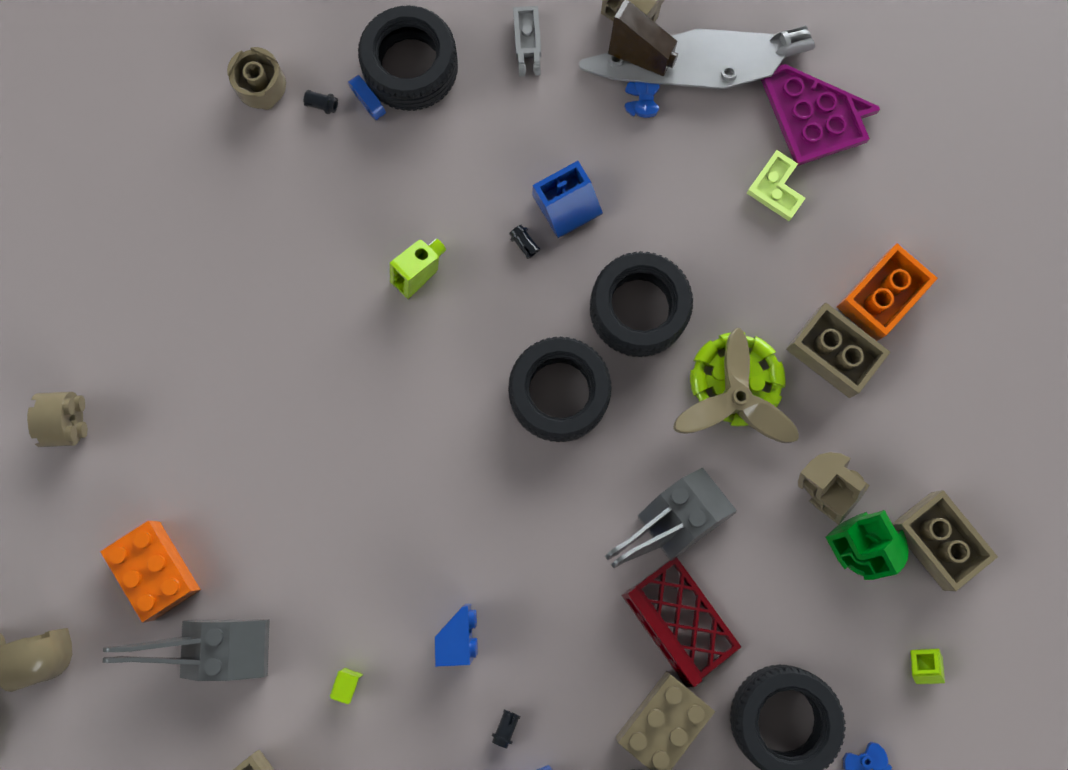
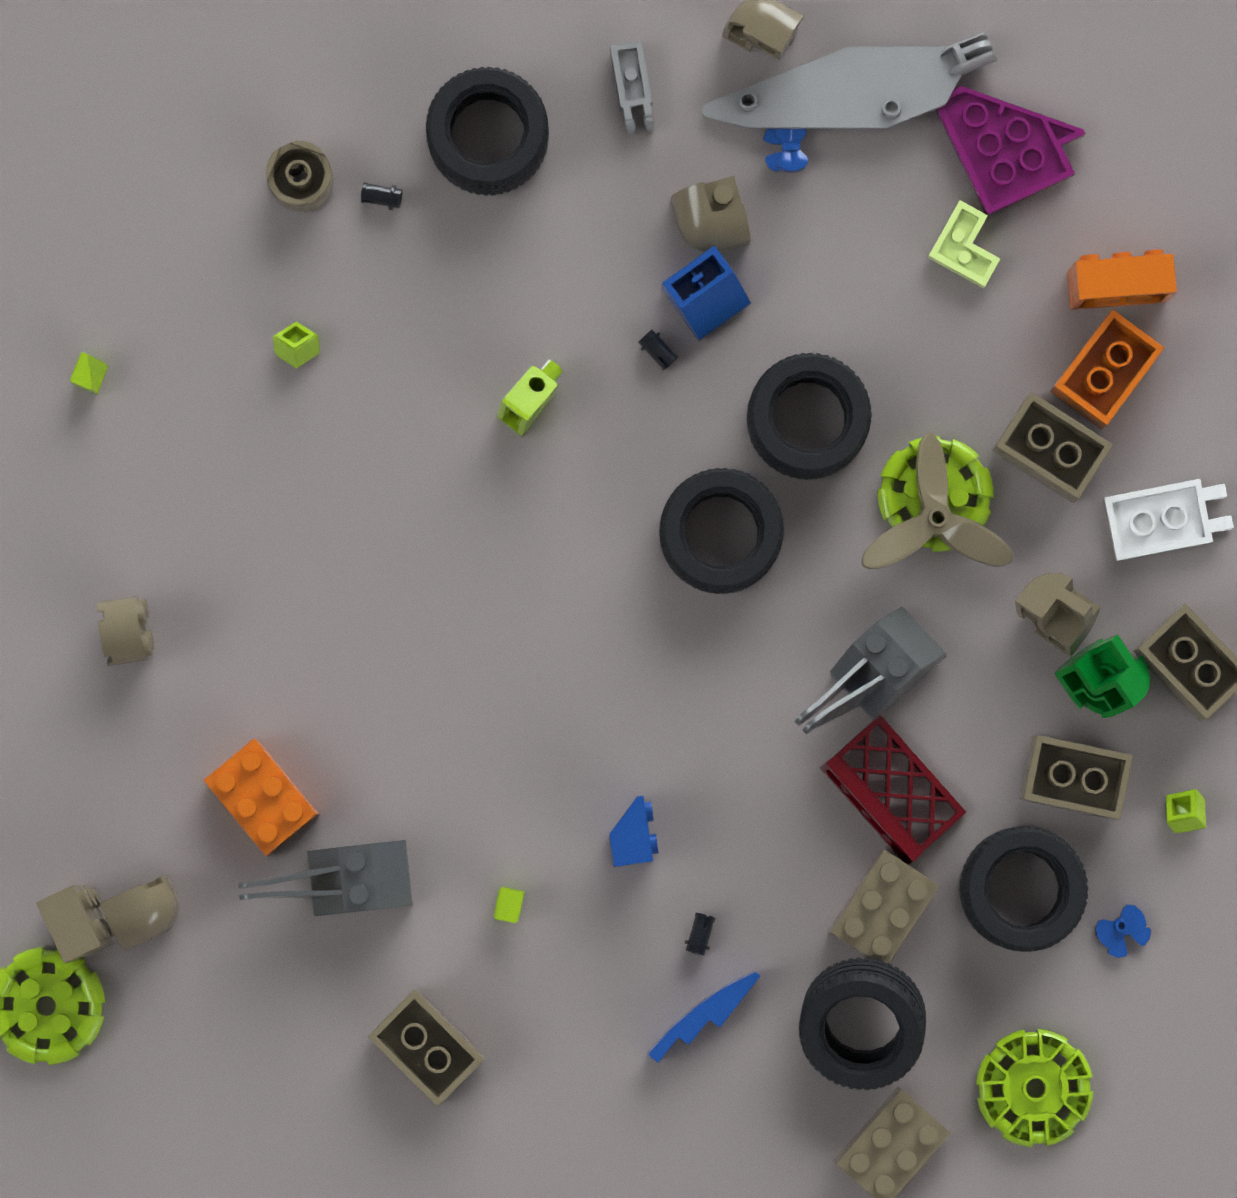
camera: 10 degrees left, 5 degrees up
(68, 212) = (88, 373): none -> lime slope
(237, 208) = (296, 344): none -> lime slope
(366, 97) = (439, 185): blue beam -> none
(579, 139) = (712, 215): none -> dark tan brick
(641, 40) = (779, 81): dark brown slope -> none
(839, 628) = (1076, 777): none -> dark tan brick
(904, 222) = (1121, 280): none -> orange brick
(923, 418) = (1163, 519): none -> white tile

